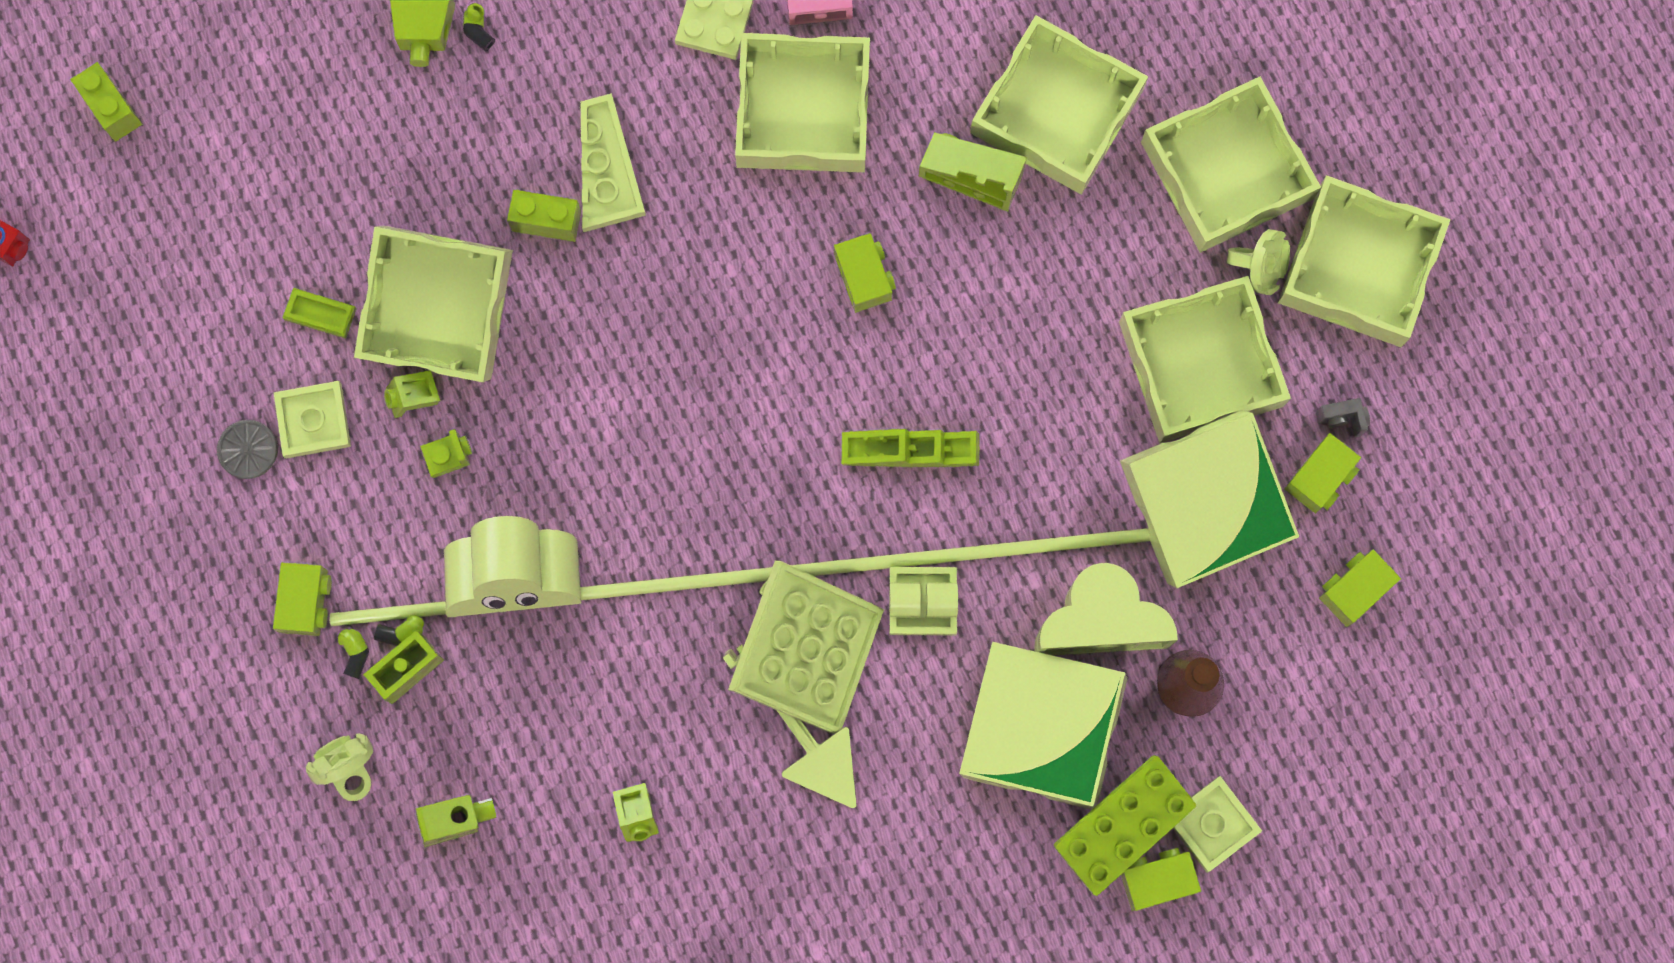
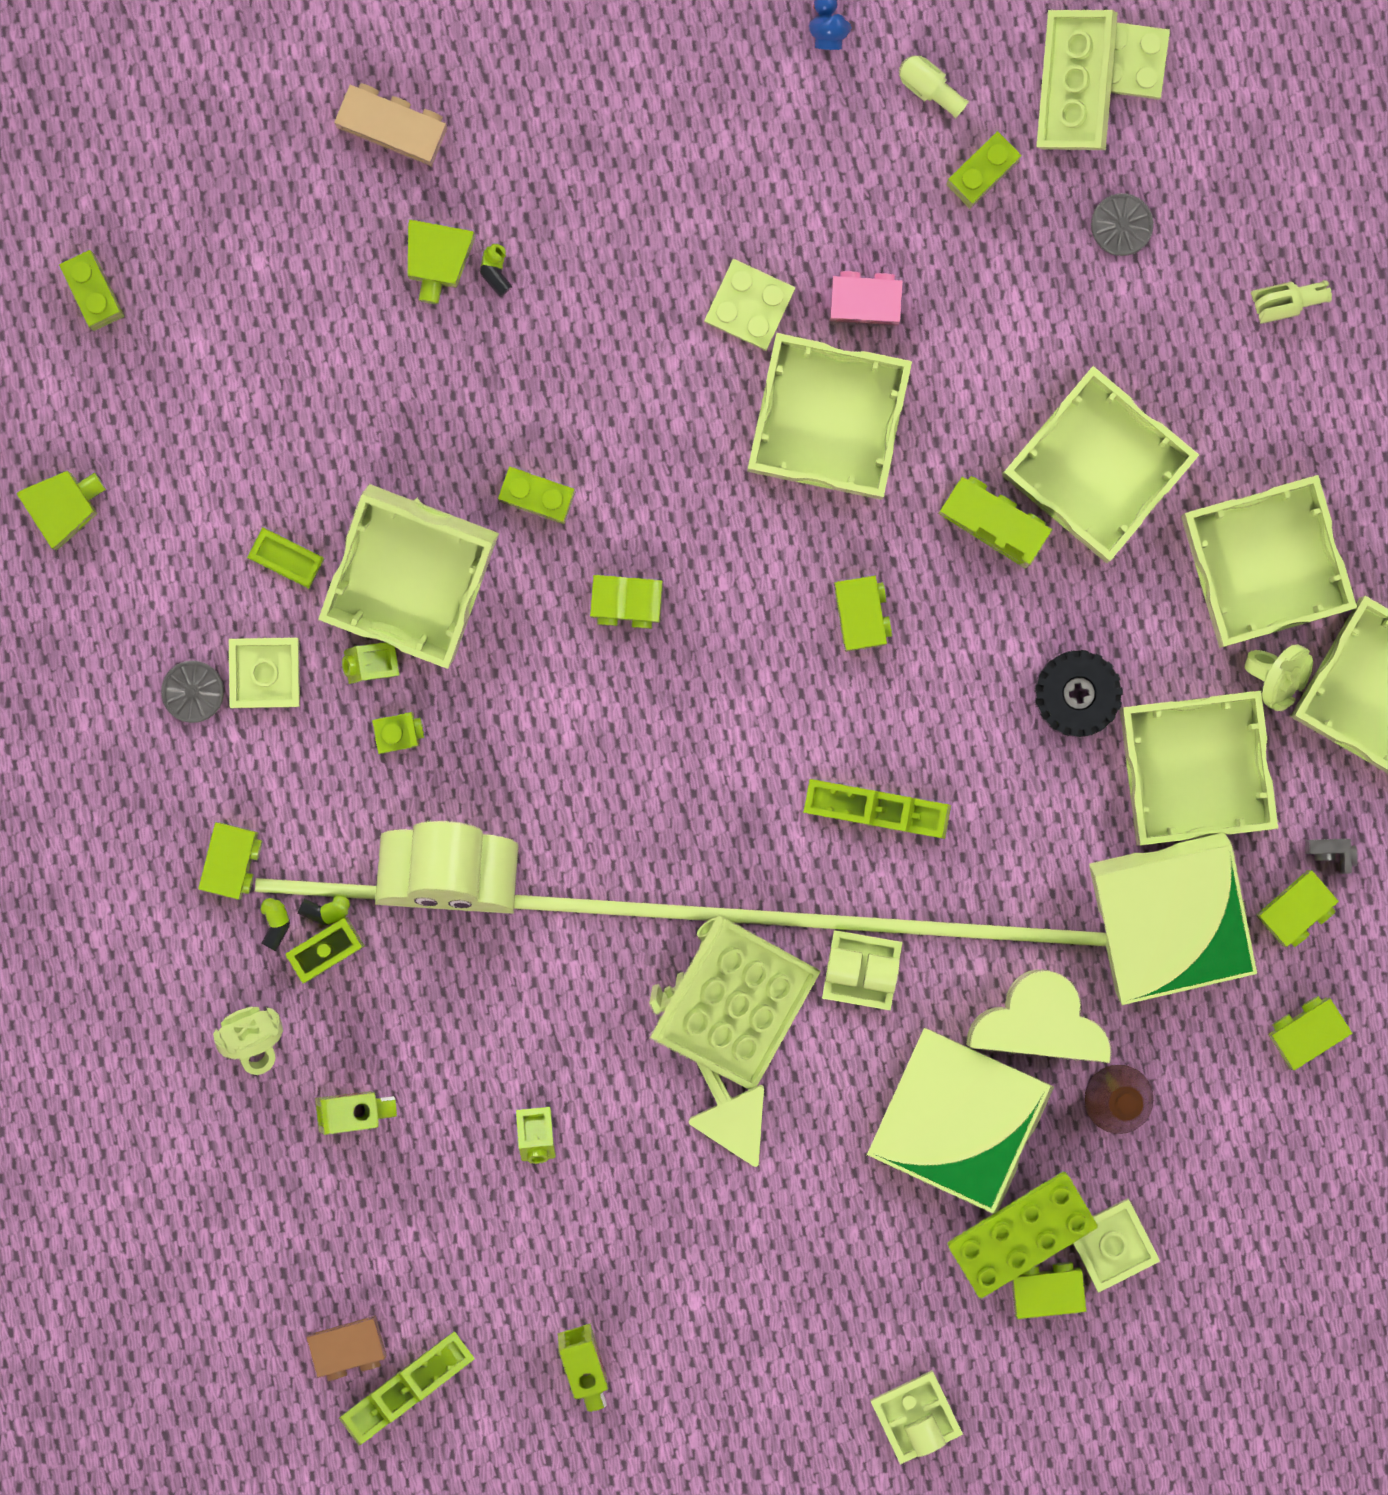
camera: 10 degrees right, 10 degrees up
(101, 298) = (61, 505): none -> lime torso
(608, 177) = (609, 462): yellowish green wing -> none
(642, 297) = (626, 599): none -> lime brick
(1068, 329) = (1058, 680): none -> black bush

